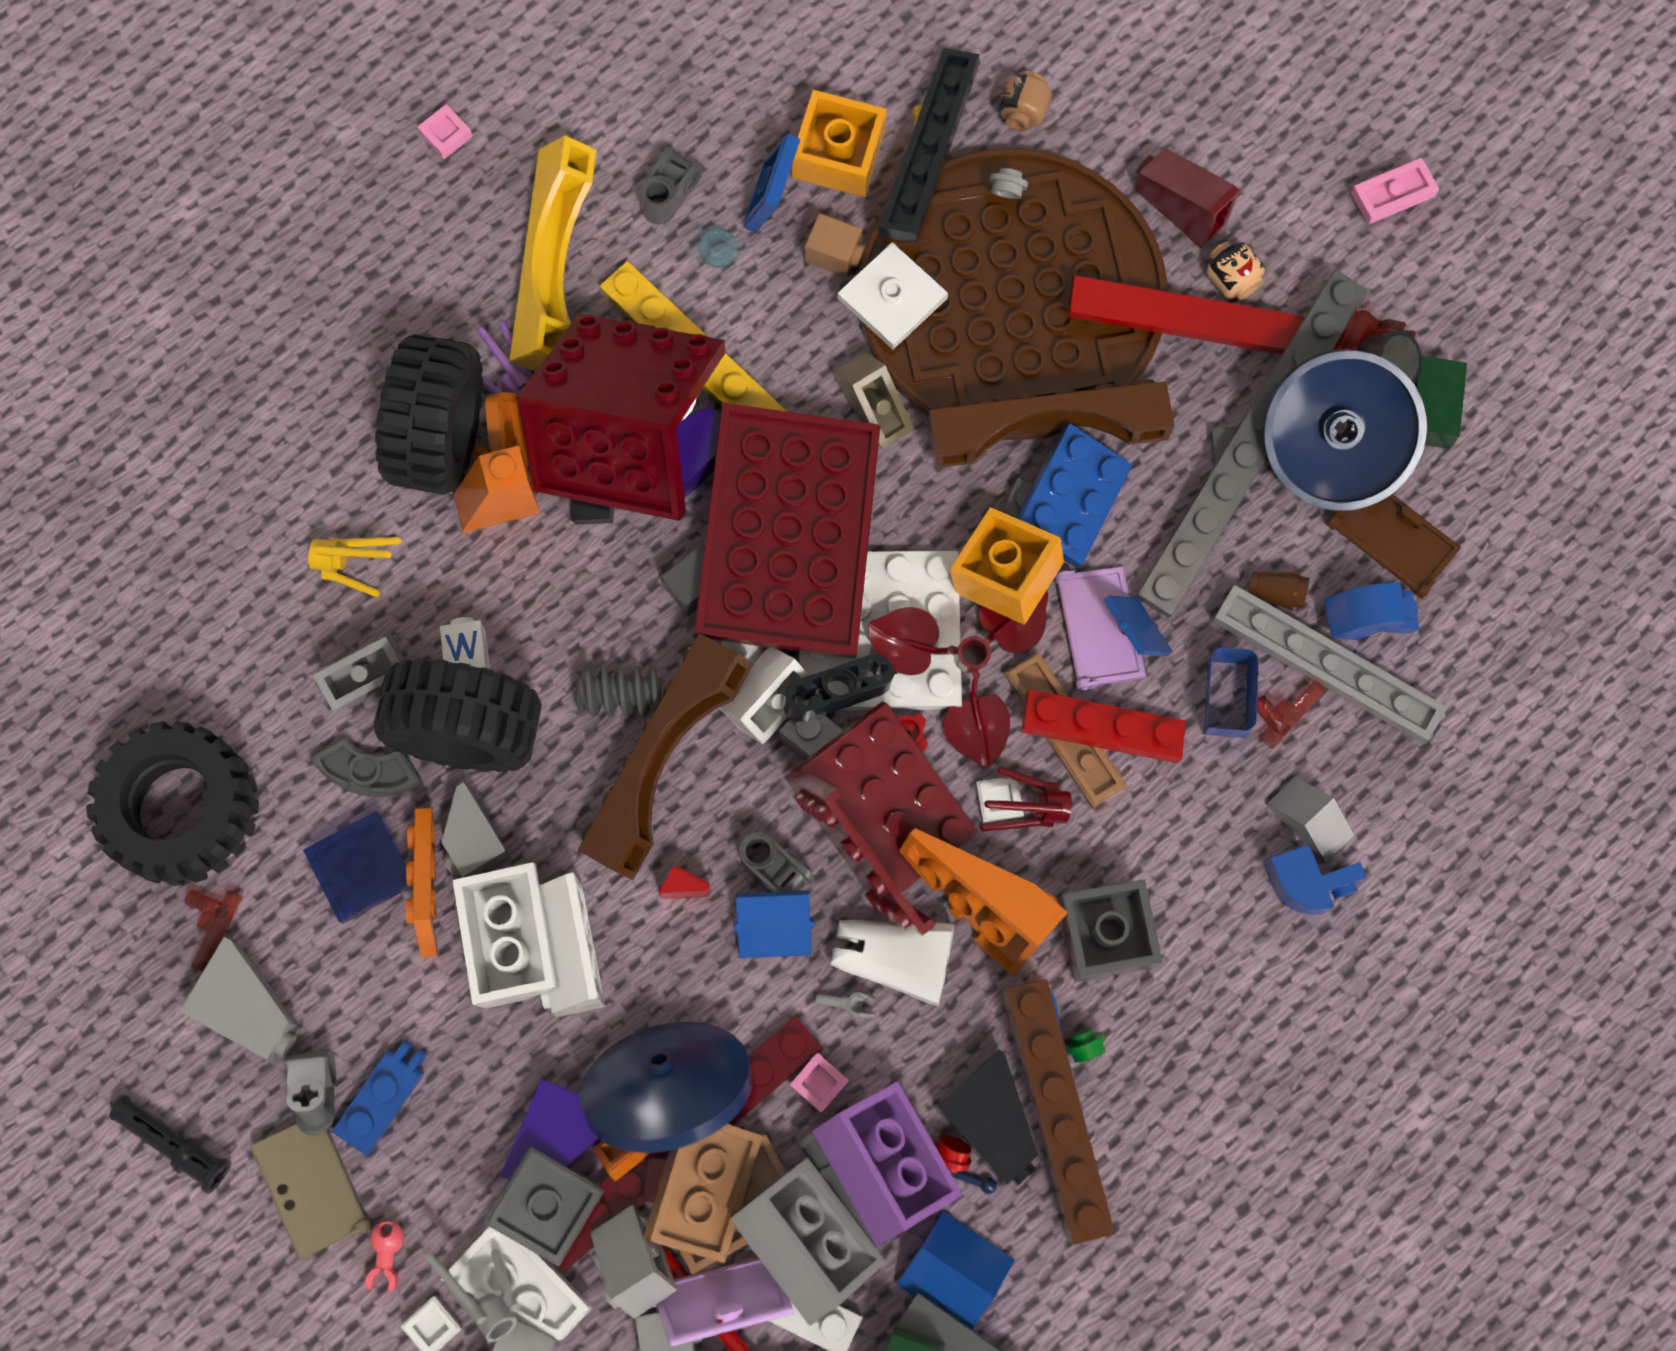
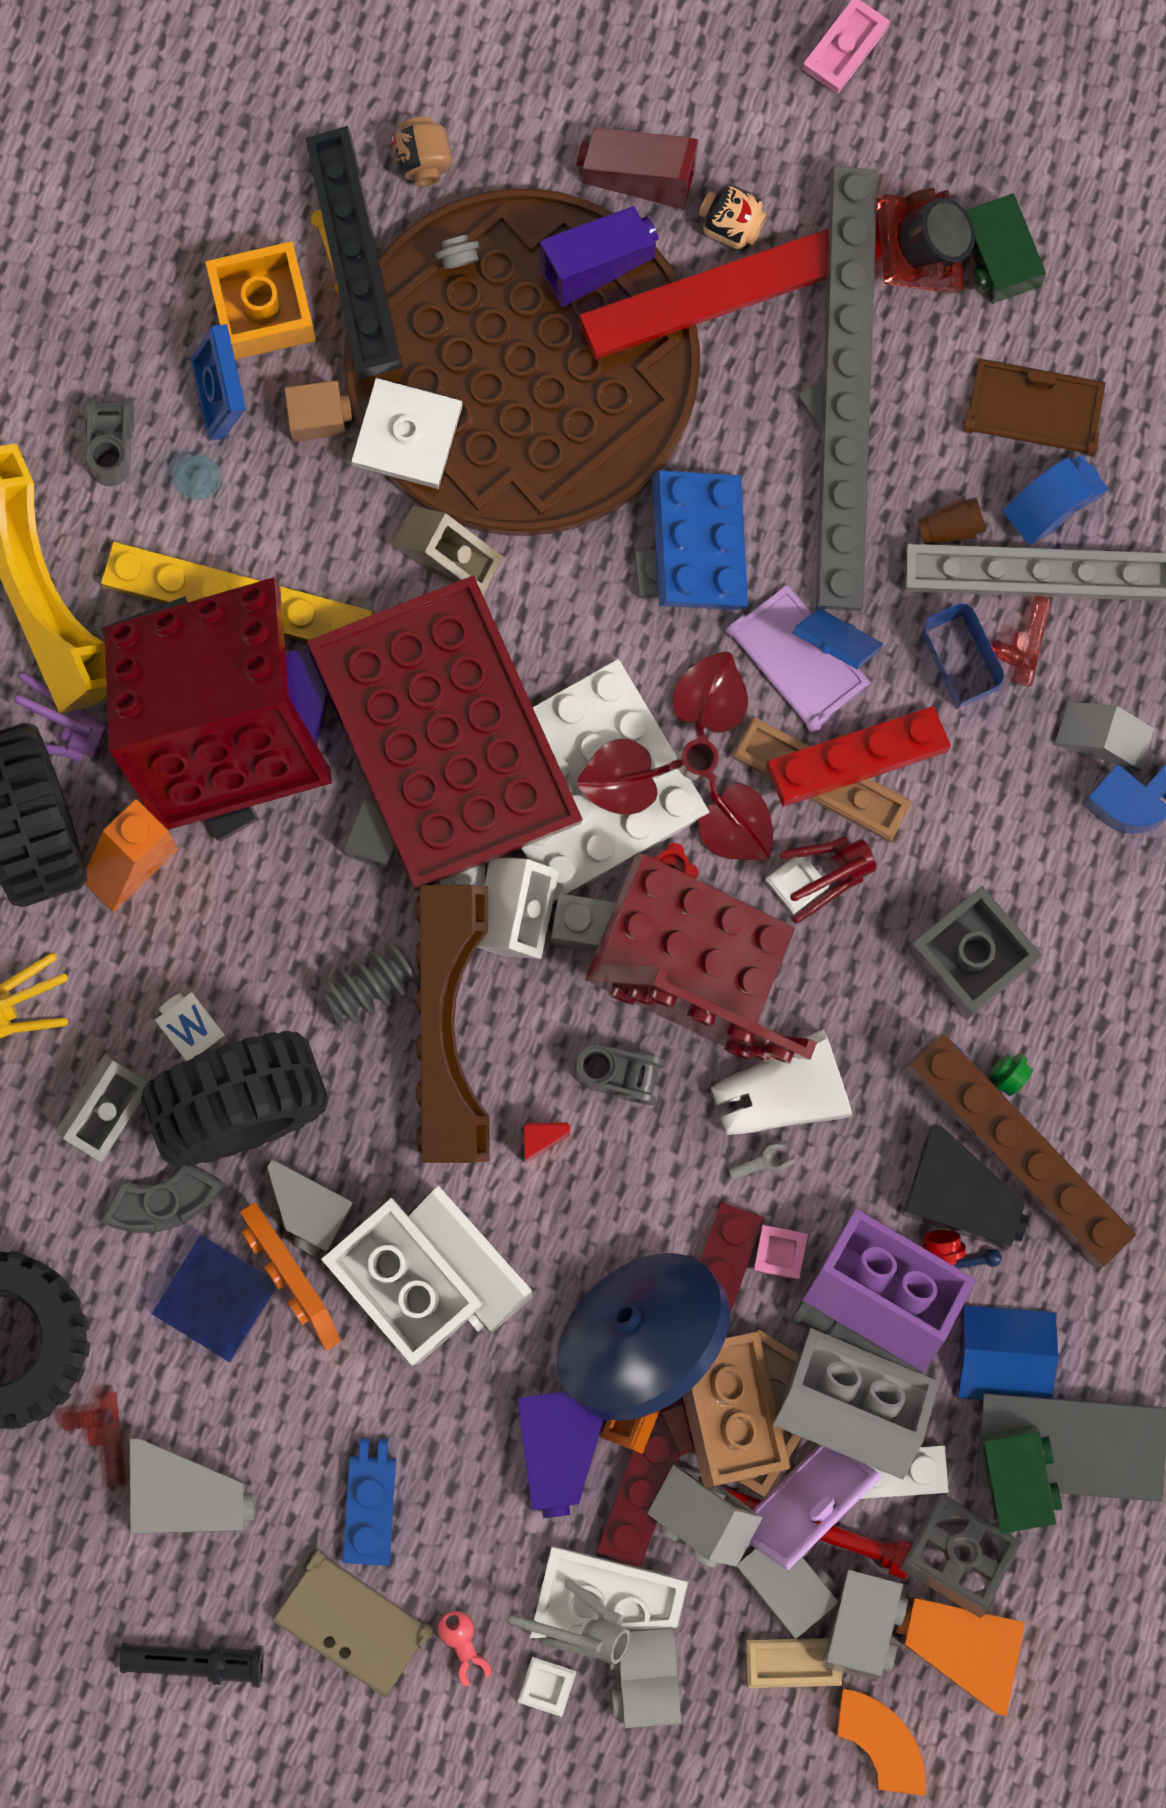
camera: 30 degrees left, 5 degrees up
(311, 1089) = (301, 1534): dark grey piece -> none
(503, 425) = (99, 788): orange piece -> none
(544, 1205) = (590, 1512): dark grey tile -> none
(773, 924) = (651, 1126): blue piece -> none
(828, 702) = (581, 882): black beam -> none
(1002, 908) = (865, 989): orange wedge -> none
(1007, 565) = (678, 649): light orange brick -> none
(1113, 236) = (596, 253): none -> dark purple slope
(1128, 412) = (711, 428): reddish brown arch -> none
(1373, 453) = (970, 336): dark blue dish -> none

